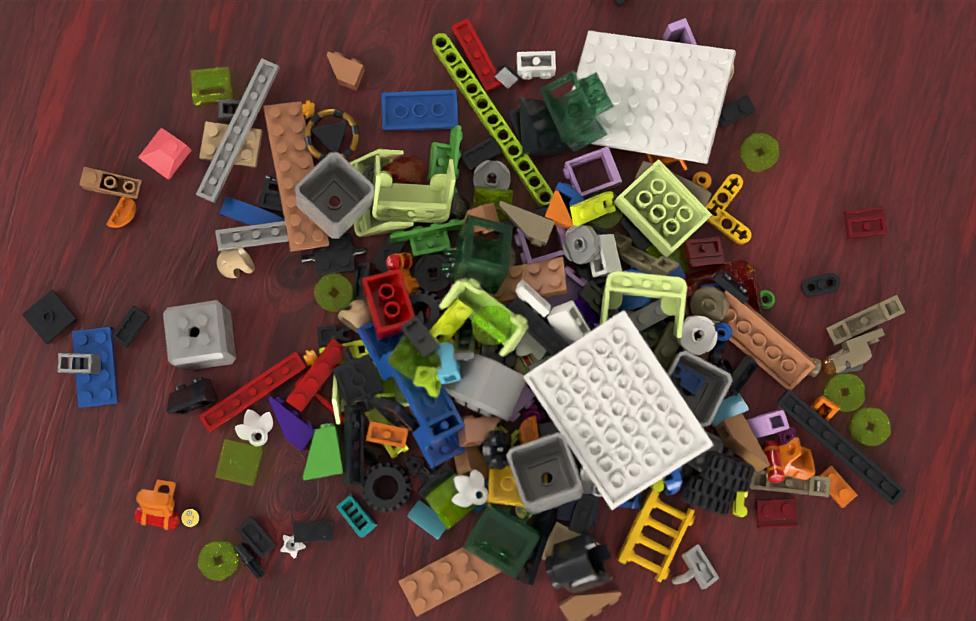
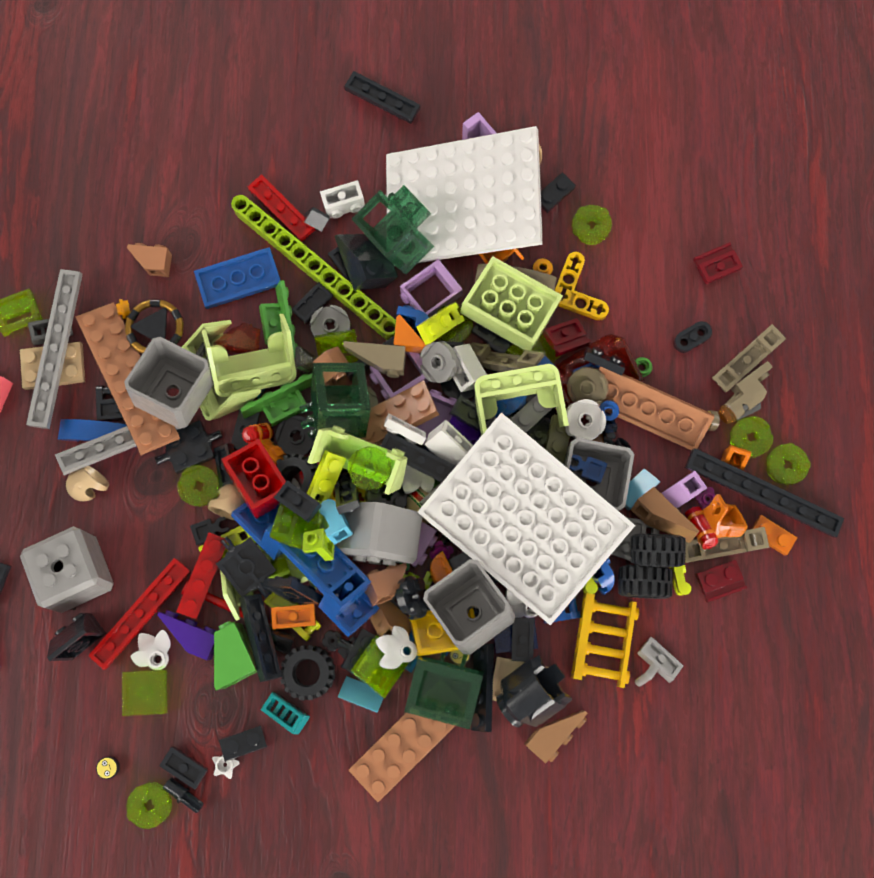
camera: 15 degrees left, 5 degrees down
(157, 507) = (67, 766): orange piece -> none
(310, 357) = (190, 559): light orange plate -> none
(689, 471) = (618, 563): black plate -> none
(742, 373) = (642, 448): black plate -> none

